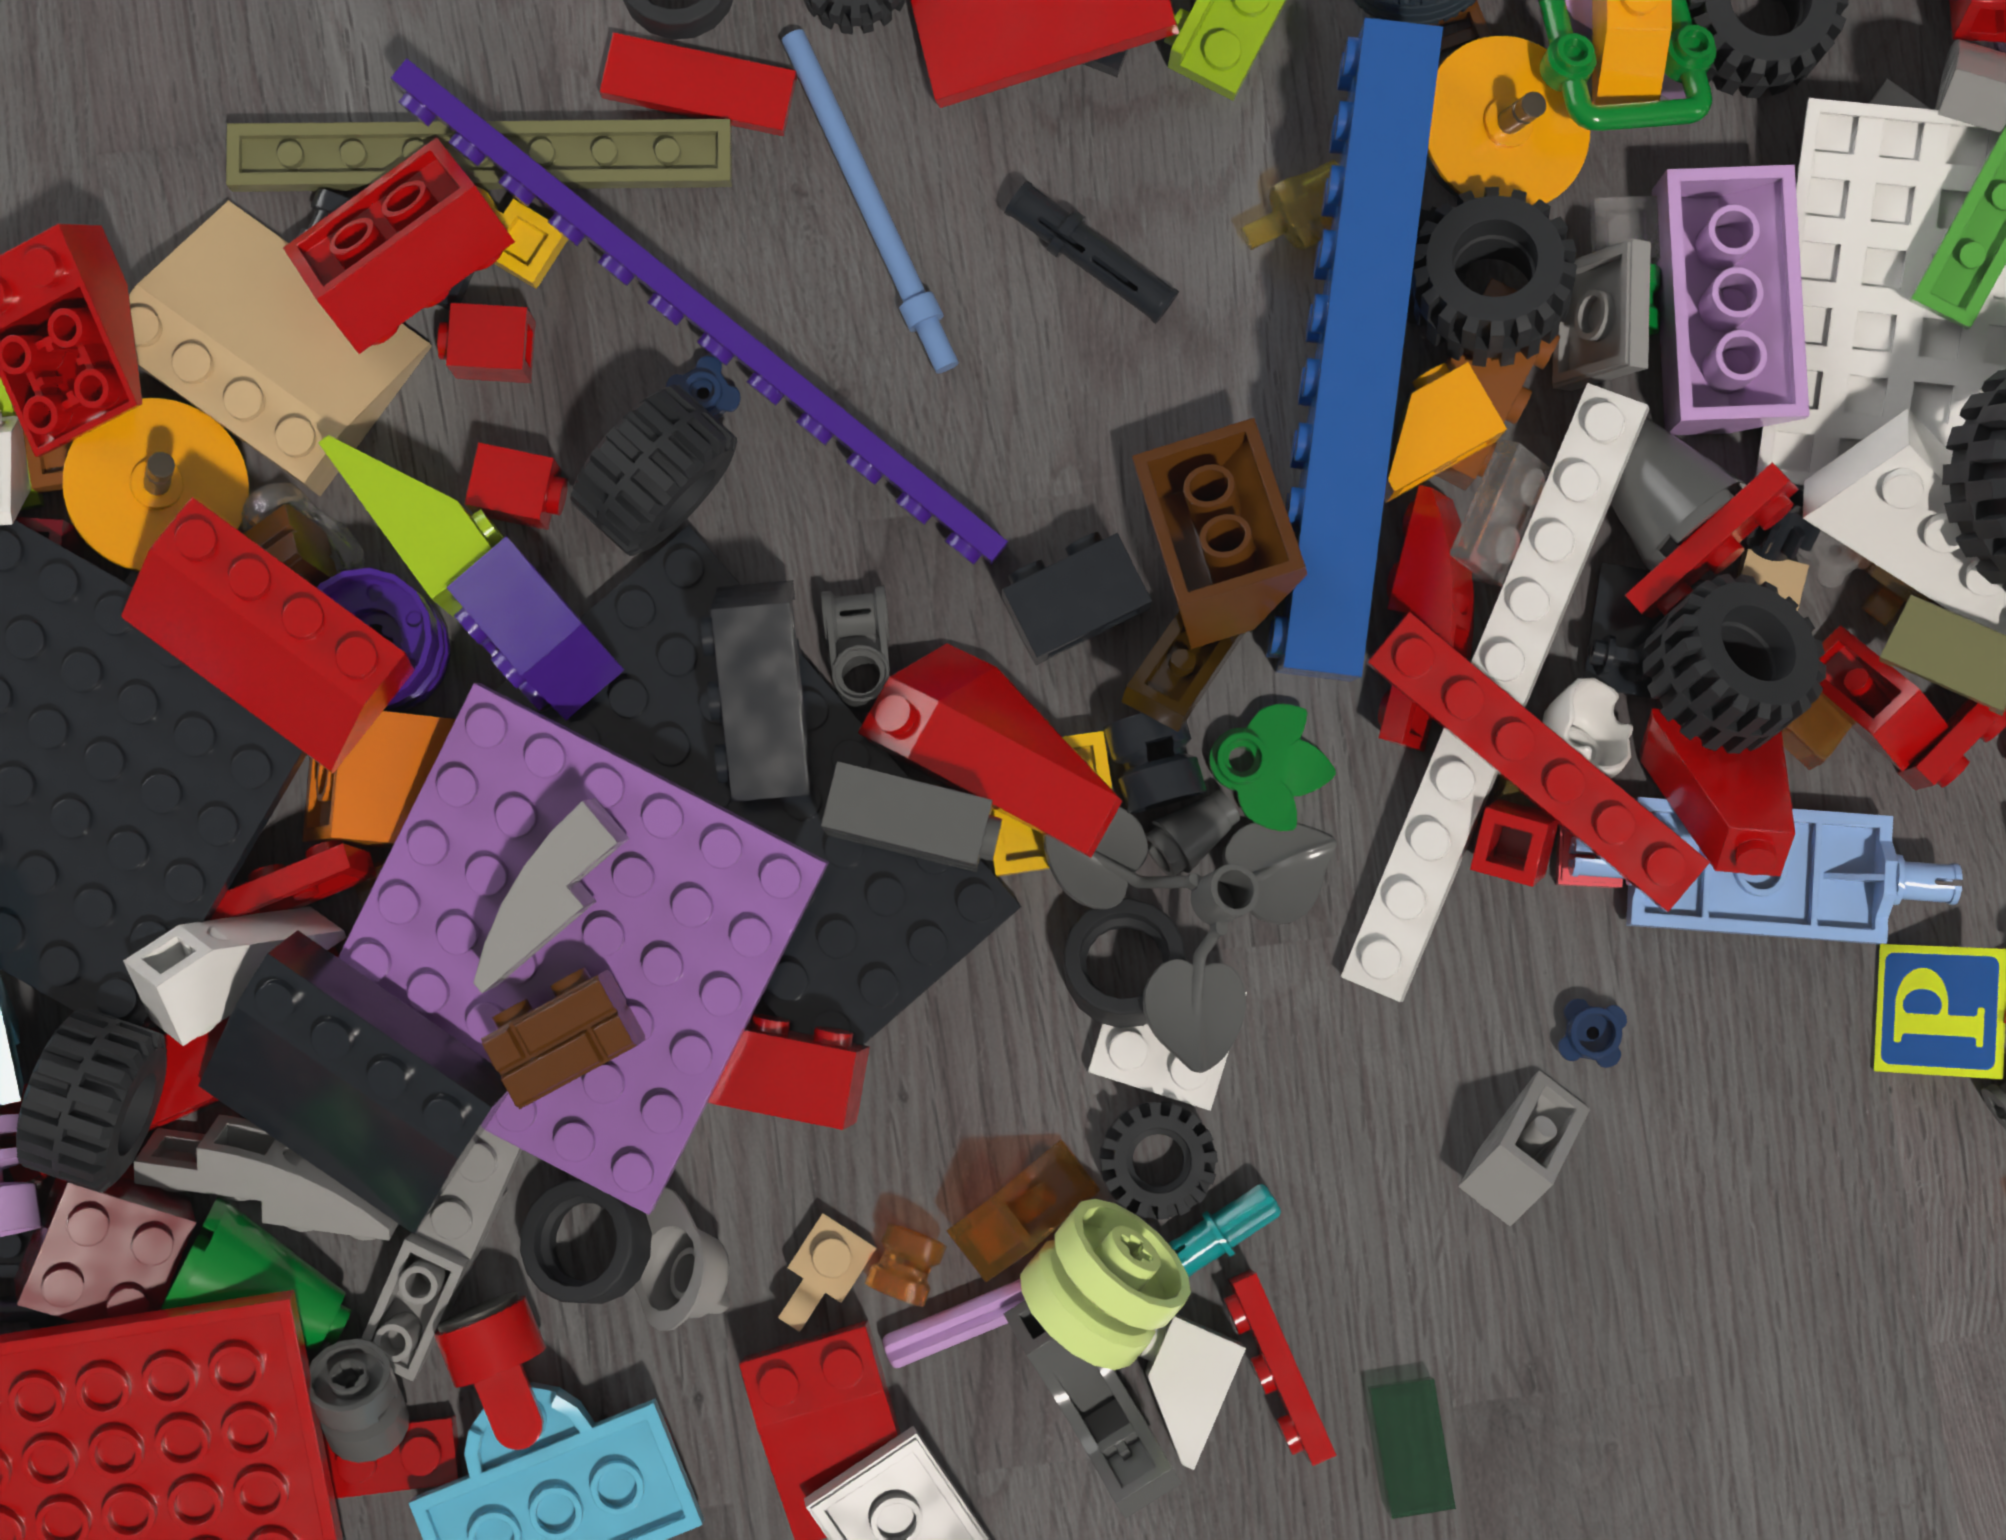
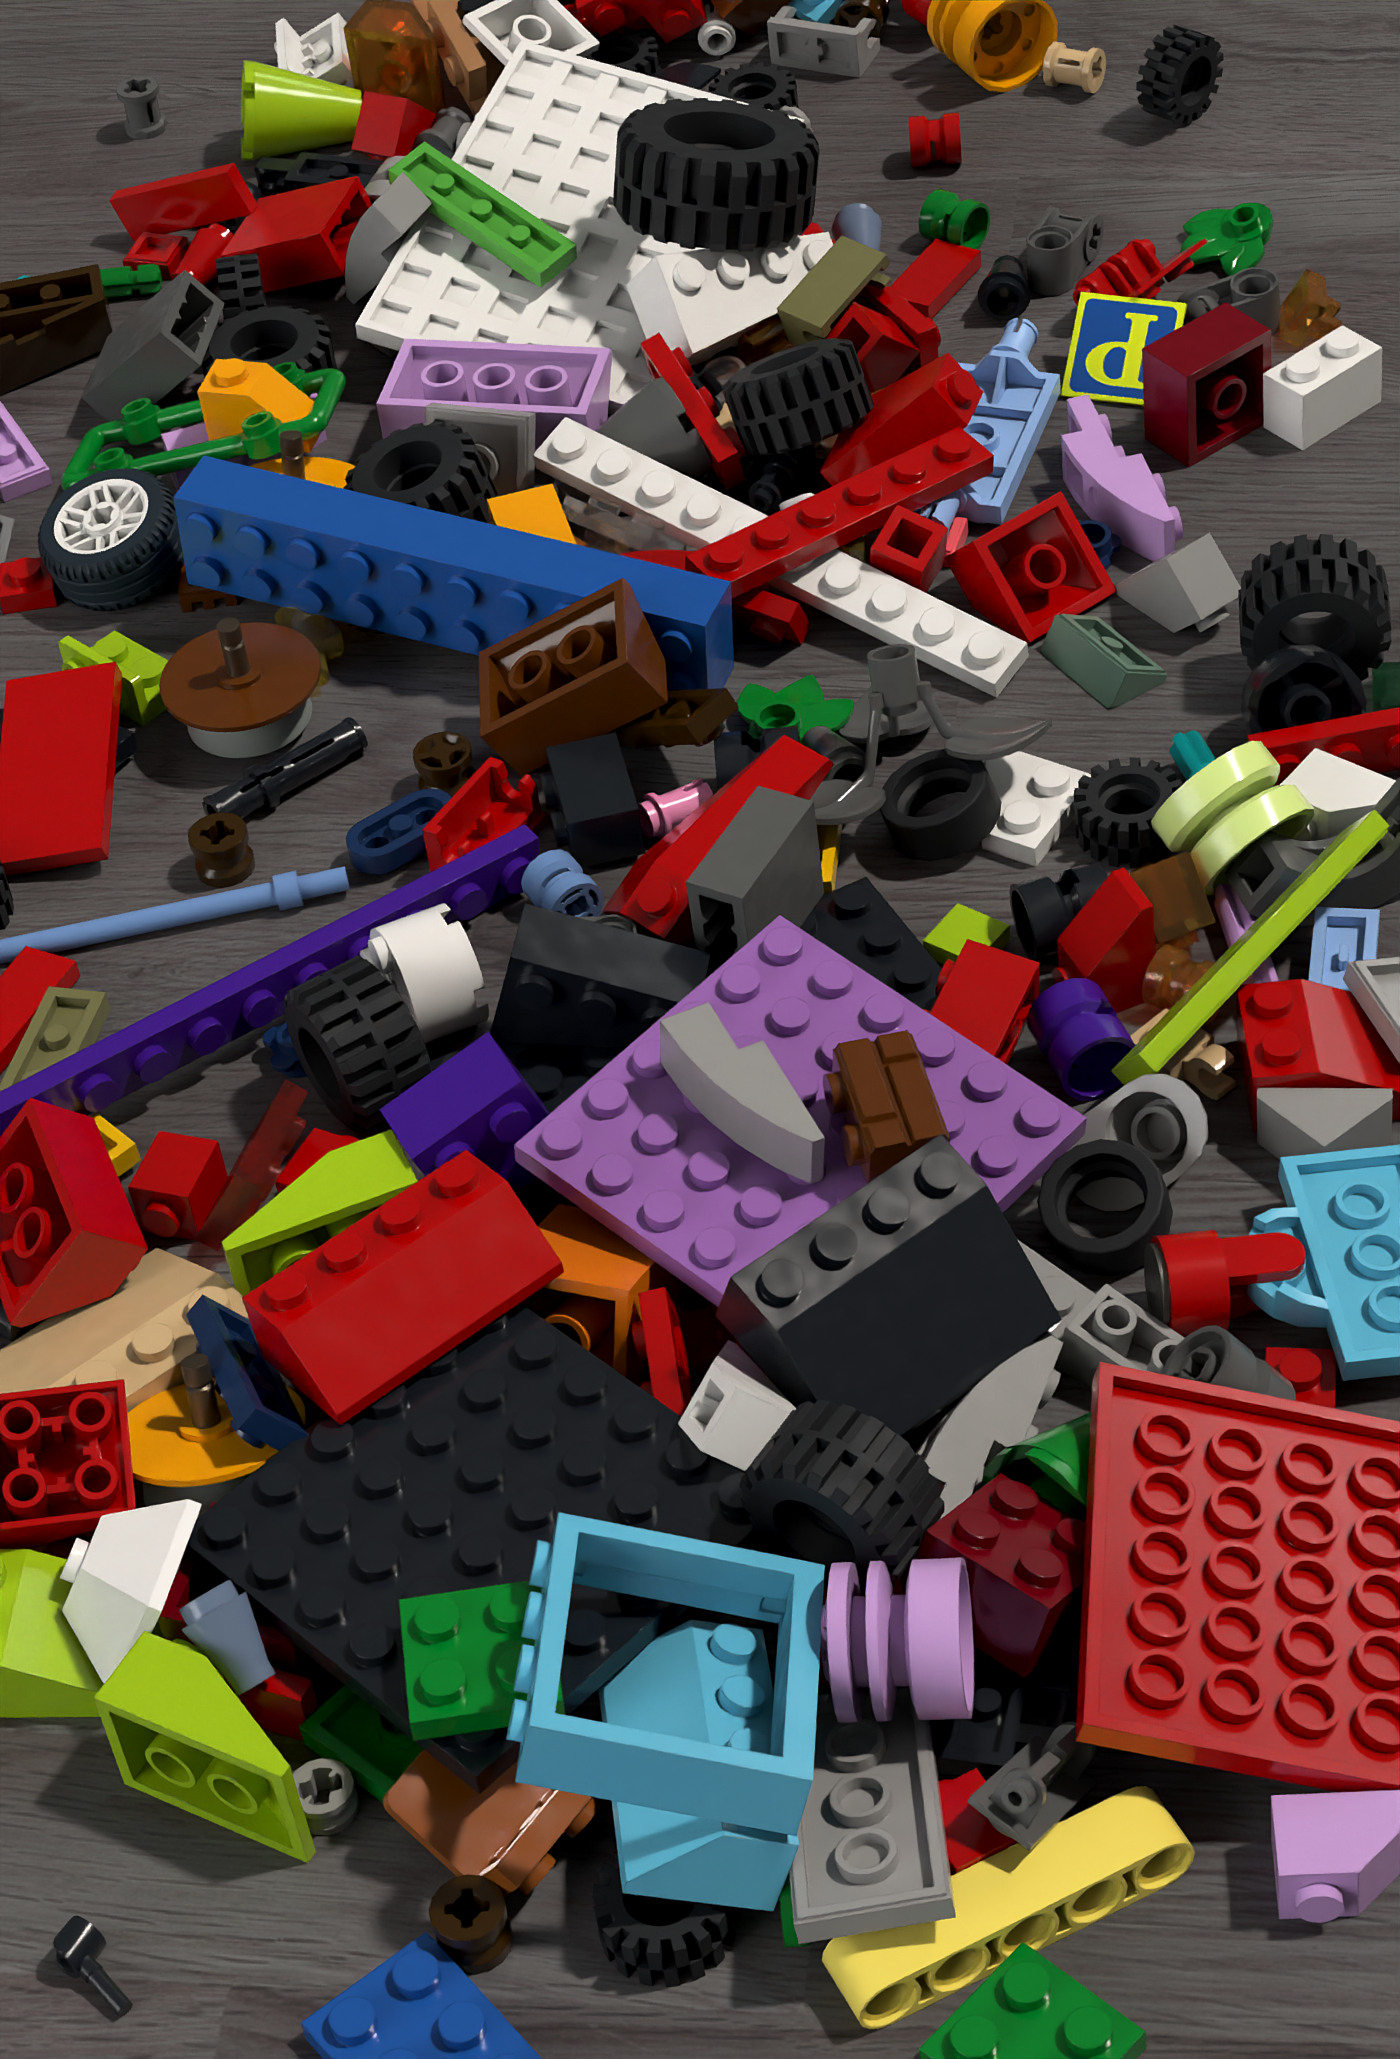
camera: 65 degrees left, 40 degrees down
(225, 482) = (243, 1378): none -> dark blue plate
(497, 414) = (256, 1166): none -> clear red plate
(724, 1437) = (1323, 1119): none -> light grey slope
(773, 502) = (431, 970): none -> white brick
(804, 1179) = (1080, 1037): none -> dark purple wheel
(908, 1337) = (1251, 949): none -> lime tile
(914, 1180) = (1110, 941): none -> red slope
(938, 610) = (559, 885): none -> medium blue wheel
(954, 1026) = (962, 924): none -> lime tile
(964, 238) = (221, 849): none -> dark brown wheel
(969, 1106) = (1047, 907): none -> black wheel
(971, 1413) = (1340, 938): none -> light blue plate
(1021, 405) = (394, 833): none -> dark blue plate
(1030, 491) = (481, 813): none -> red hinge
(1094, 680) = (668, 810): none -> bright pink pin
(1125, 404) = (443, 762): none -> dark brown wheel
(1187, 165) = (242, 687): none -> reddish brown piece
(1334, 1317) = (1300, 688): none -> black cylinder
(1413, 1081) = (1100, 659): none -> sand green slope
(1448, 1318) = (1316, 578): none -> black tyre
(1525, 981) = (1032, 570): none -> red slope
(1679, 1053) = (1116, 486): none -> lavender slope
(1866, 1125) = (1205, 384): none -> dark red brick
(1904, 1255) = (1322, 387): none -> white brick

